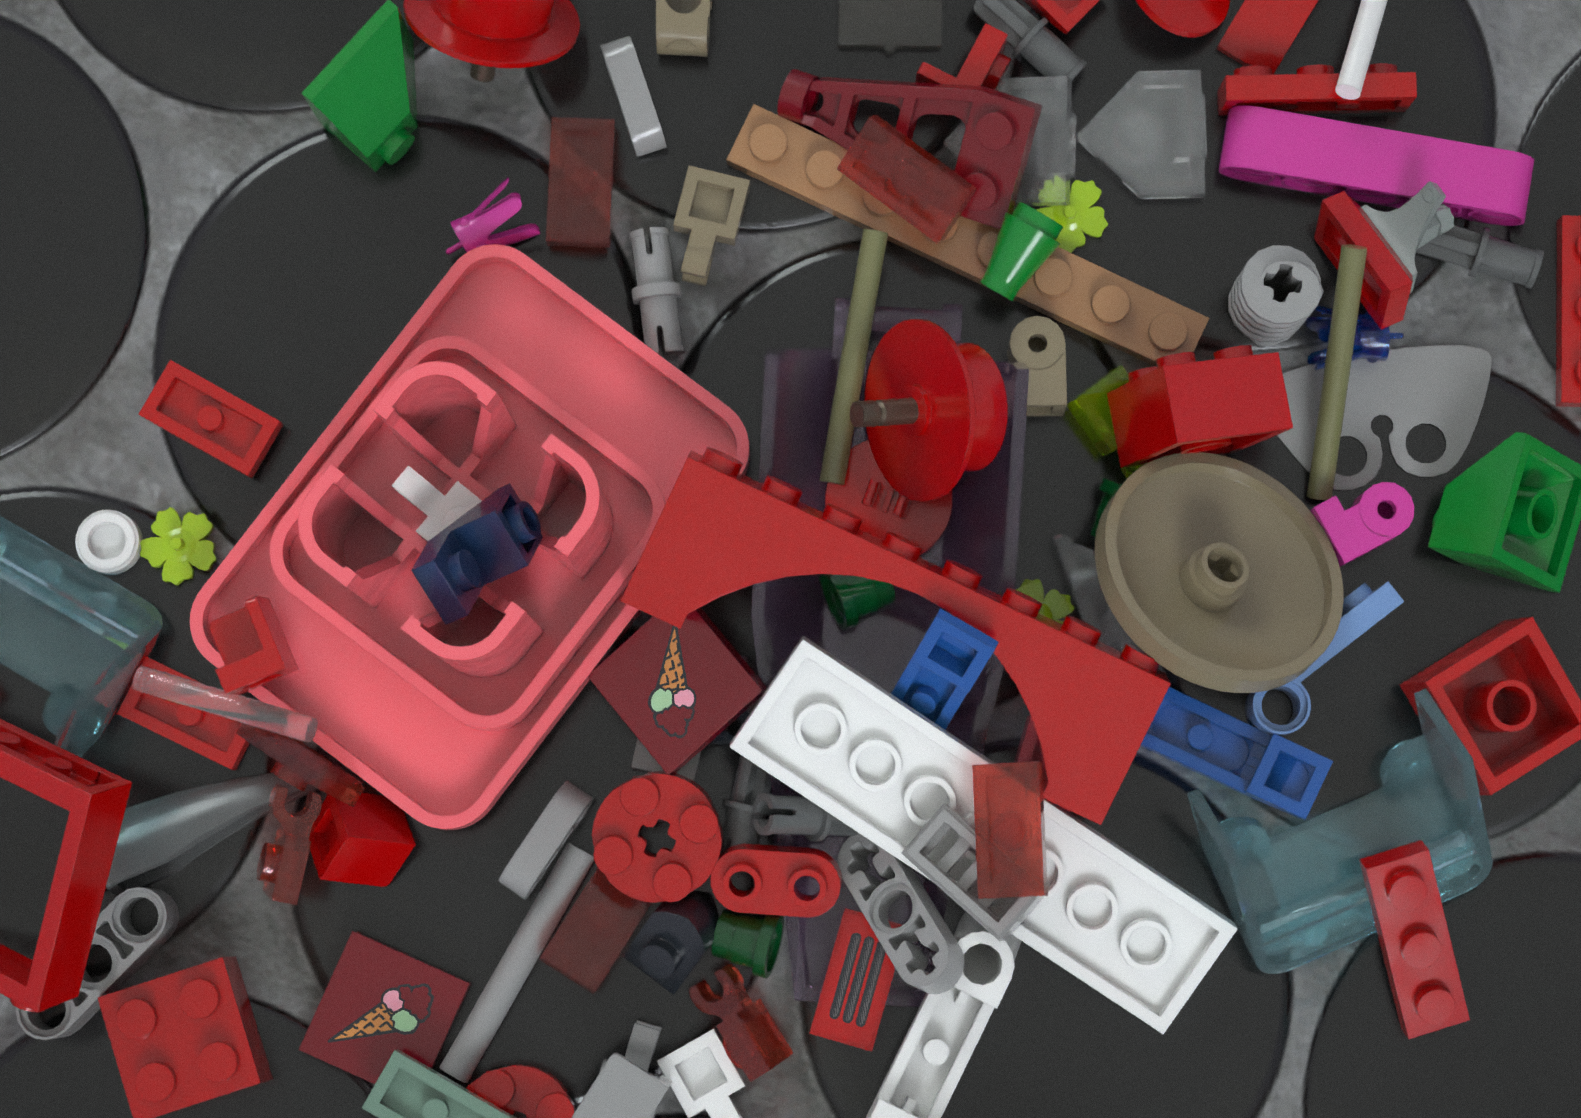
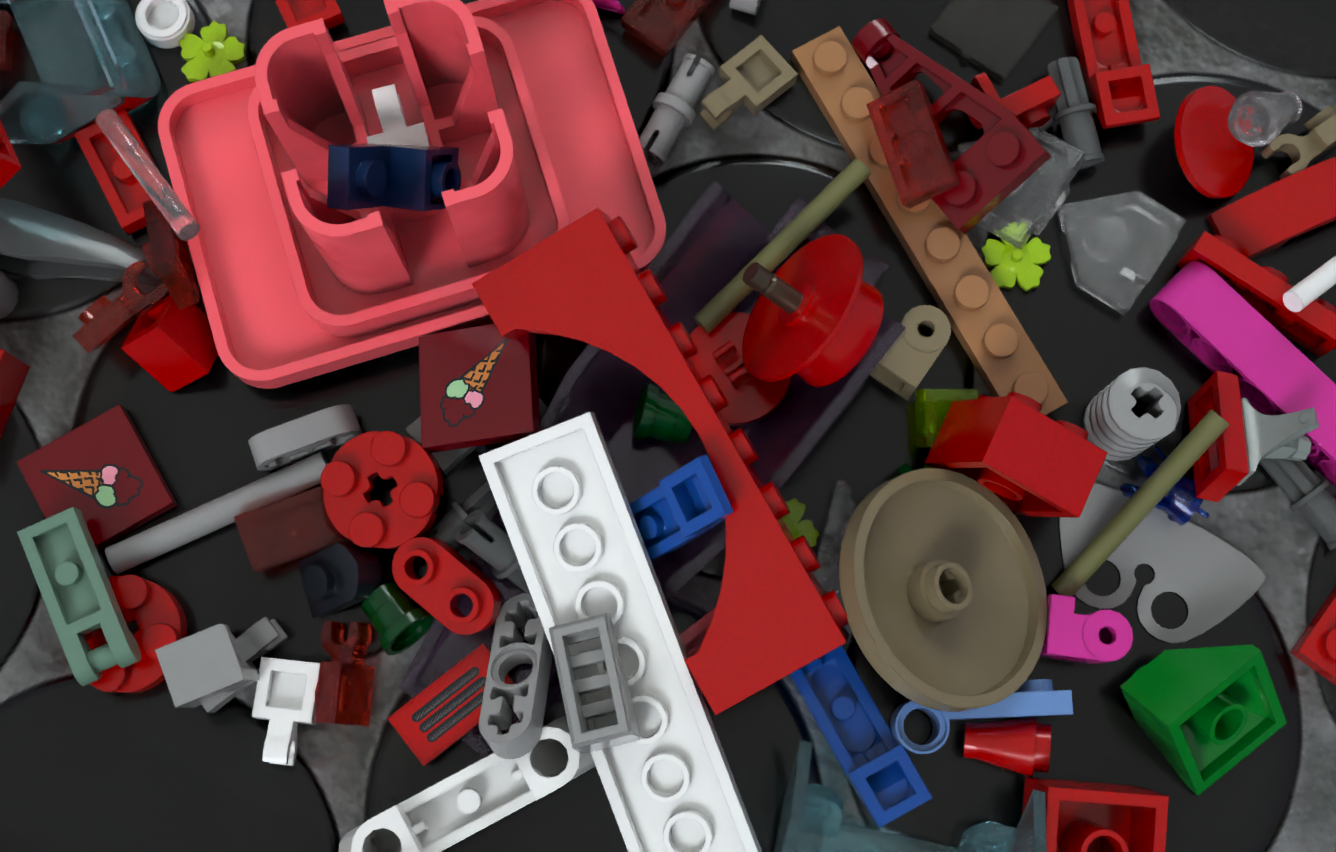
camera: 30 degrees right, 5 degrees down
(251, 647) = (193, 144): red panel -> none
(1010, 830) = (640, 667): clear red plate -> none
(1020, 249) = (961, 251): green cone -> none
(1367, 665) = (1010, 744): none -> red cone

